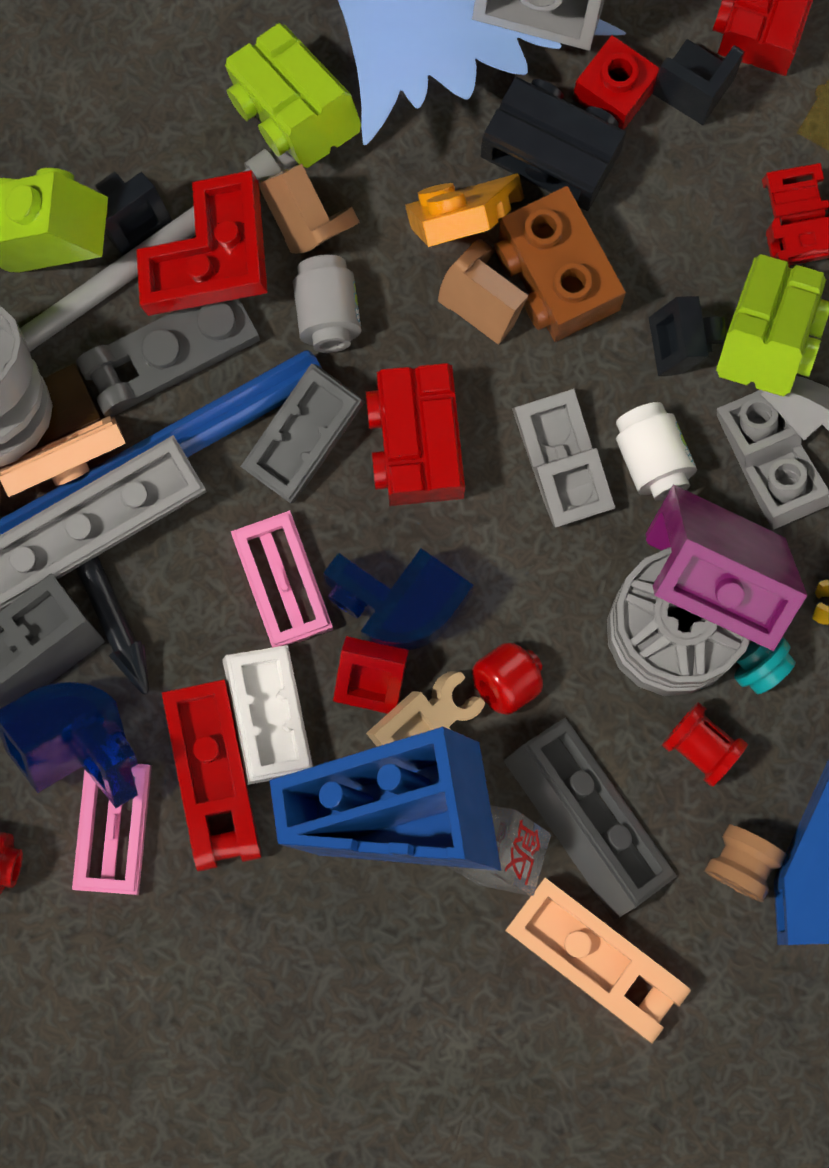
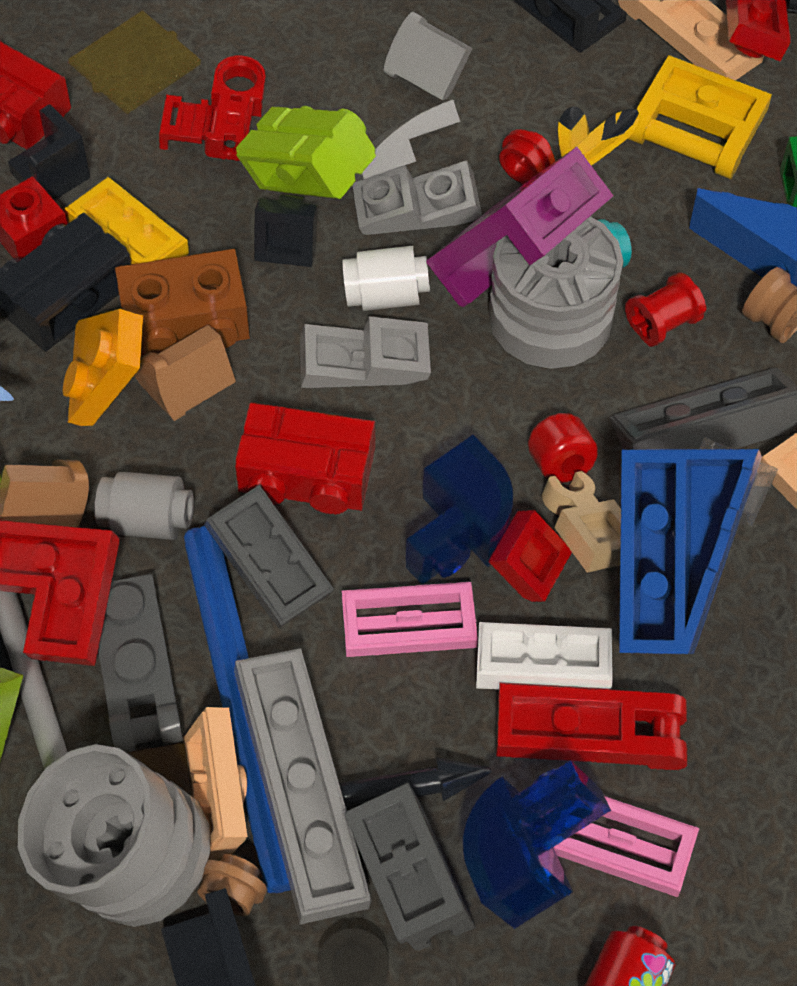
camera: 75 degrees left, 20 degrees down
(637, 182) = (129, 222): none -> yellow plate

